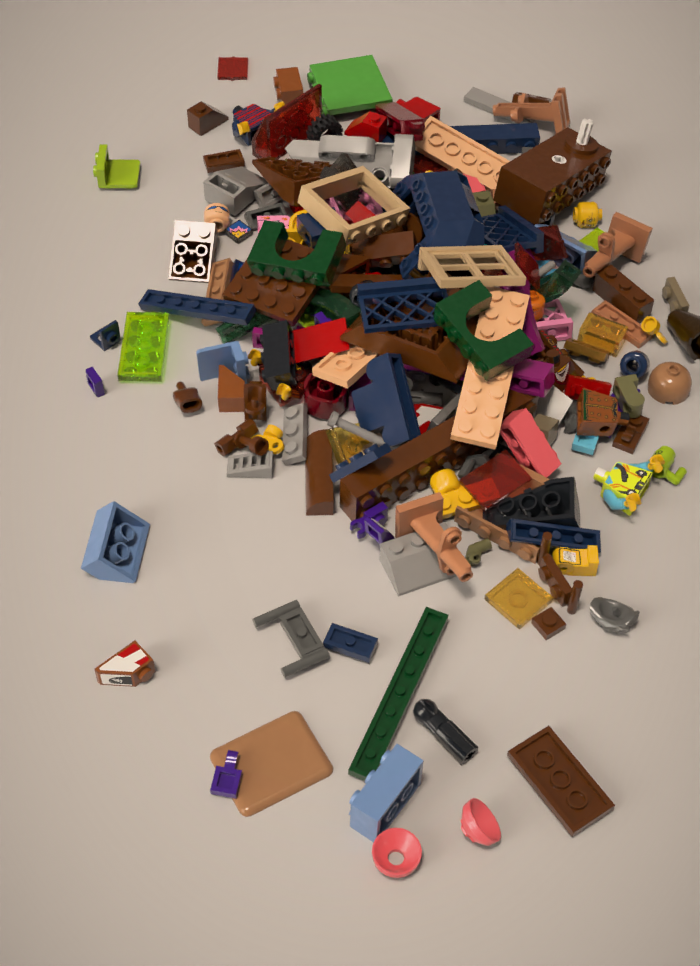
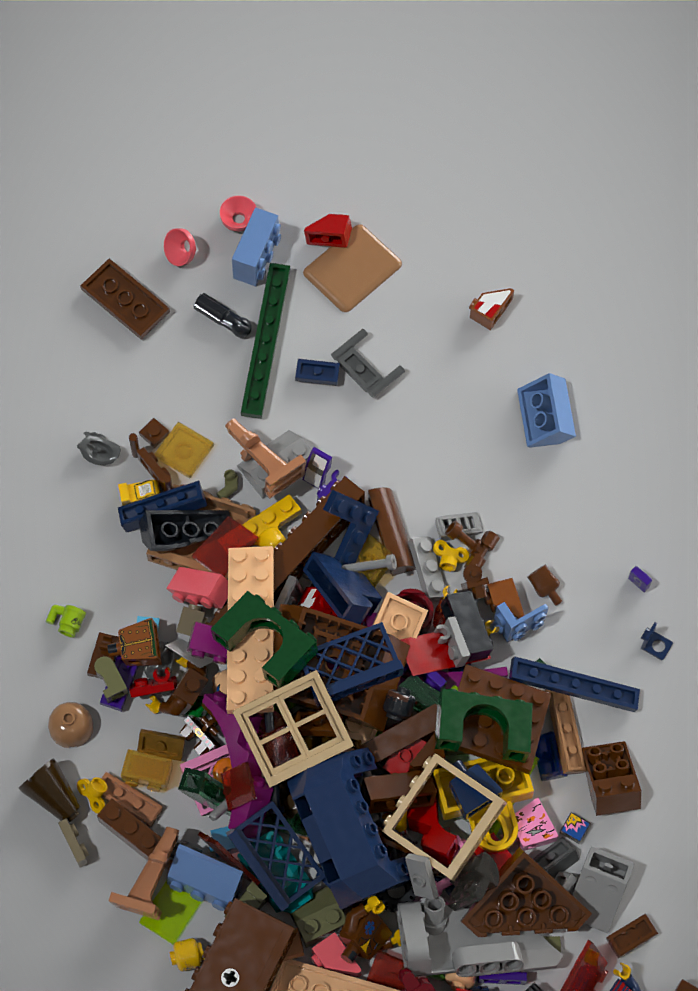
camera: 165 degrees right, 15 degrees up
(143, 346) = (612, 637): clear neon green plate -> none
(217, 214) = (604, 832): light nougat head -> none
(227, 778) = (381, 240): dark purple plate -> none
(285, 801) = (329, 231): none -> red slope
(295, 339) = (452, 635): none -> light grey plate
(387, 180) = (421, 876): none -> light grey plate
(627, 363) = (108, 731): dark blue head -> none
(627, 483) = (102, 581): torso -> none

